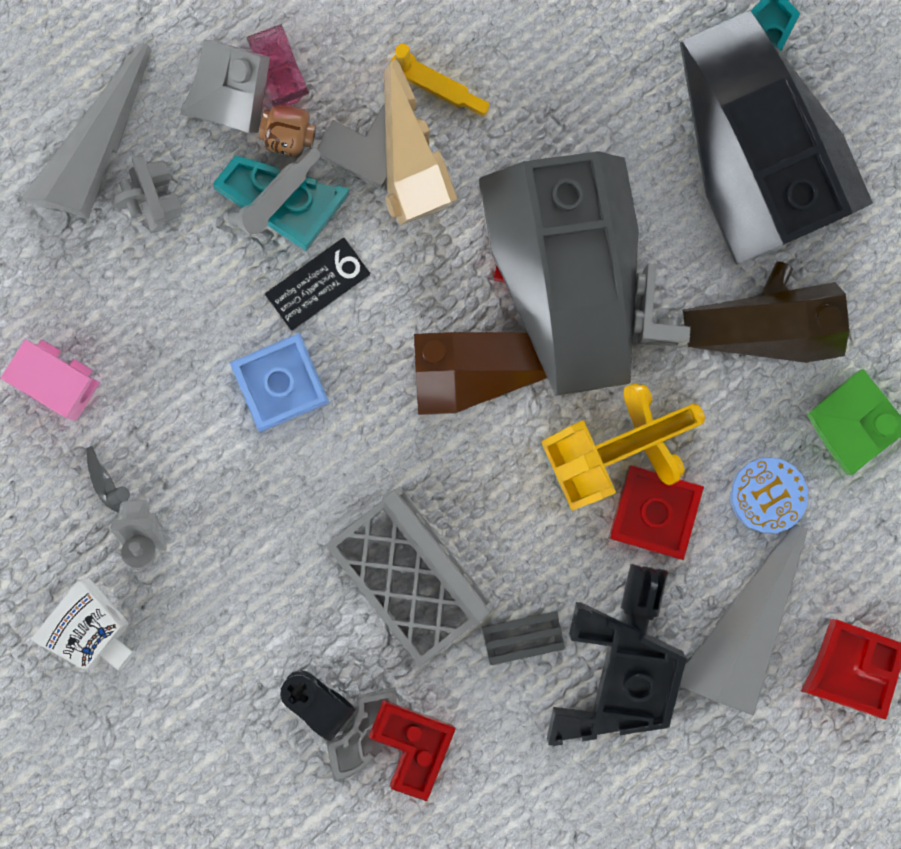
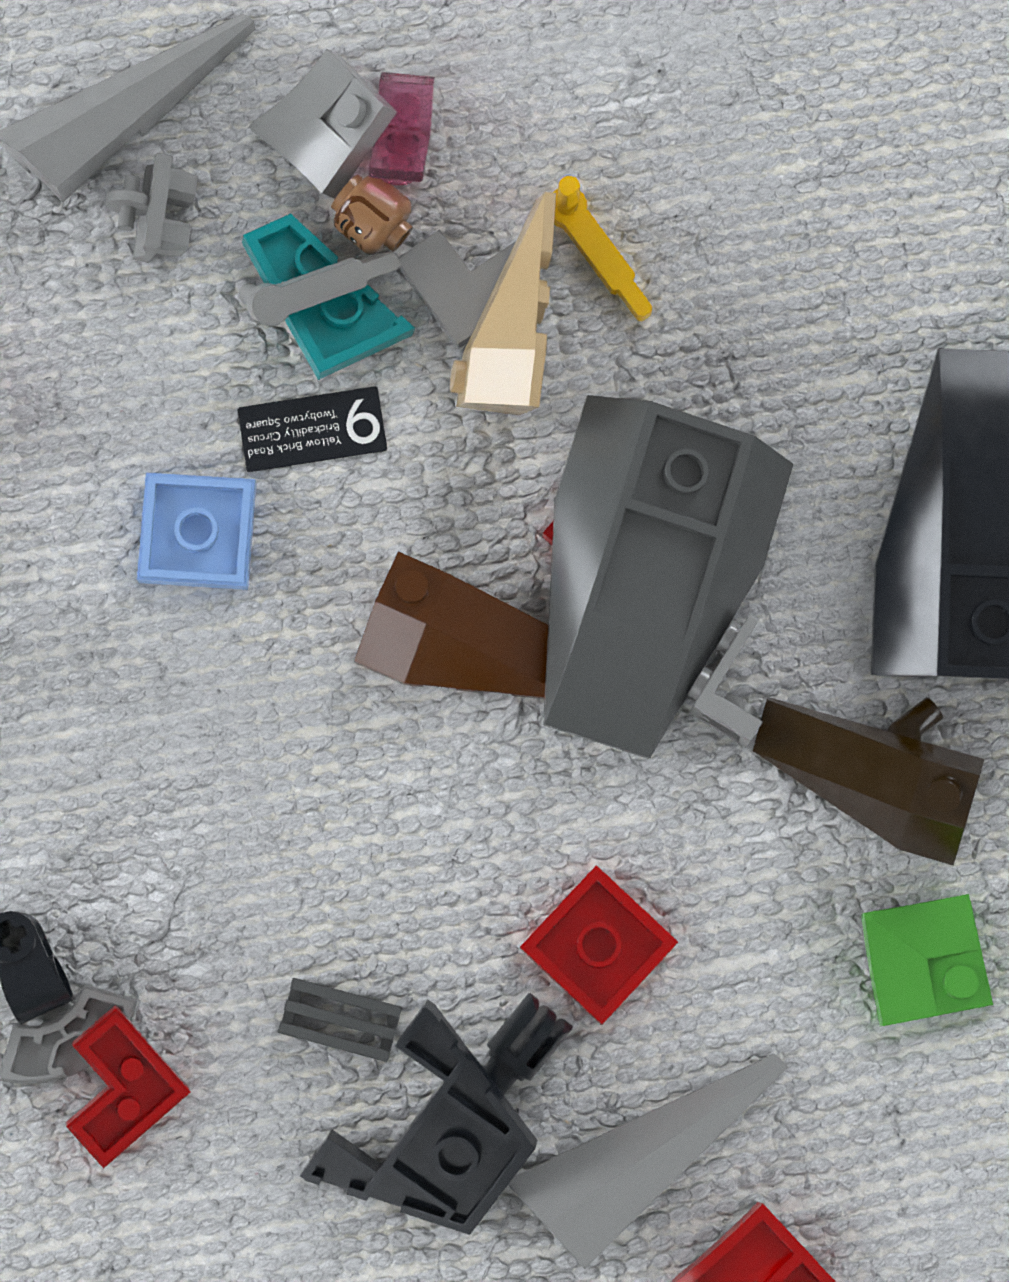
camera: 25 degrees right, 5 degrees down
(436, 556) = (281, 855): light grey fence -> none
(582, 465) = (530, 828): yellow piece -> none
(769, 495) = (759, 998): light blue tile -> none

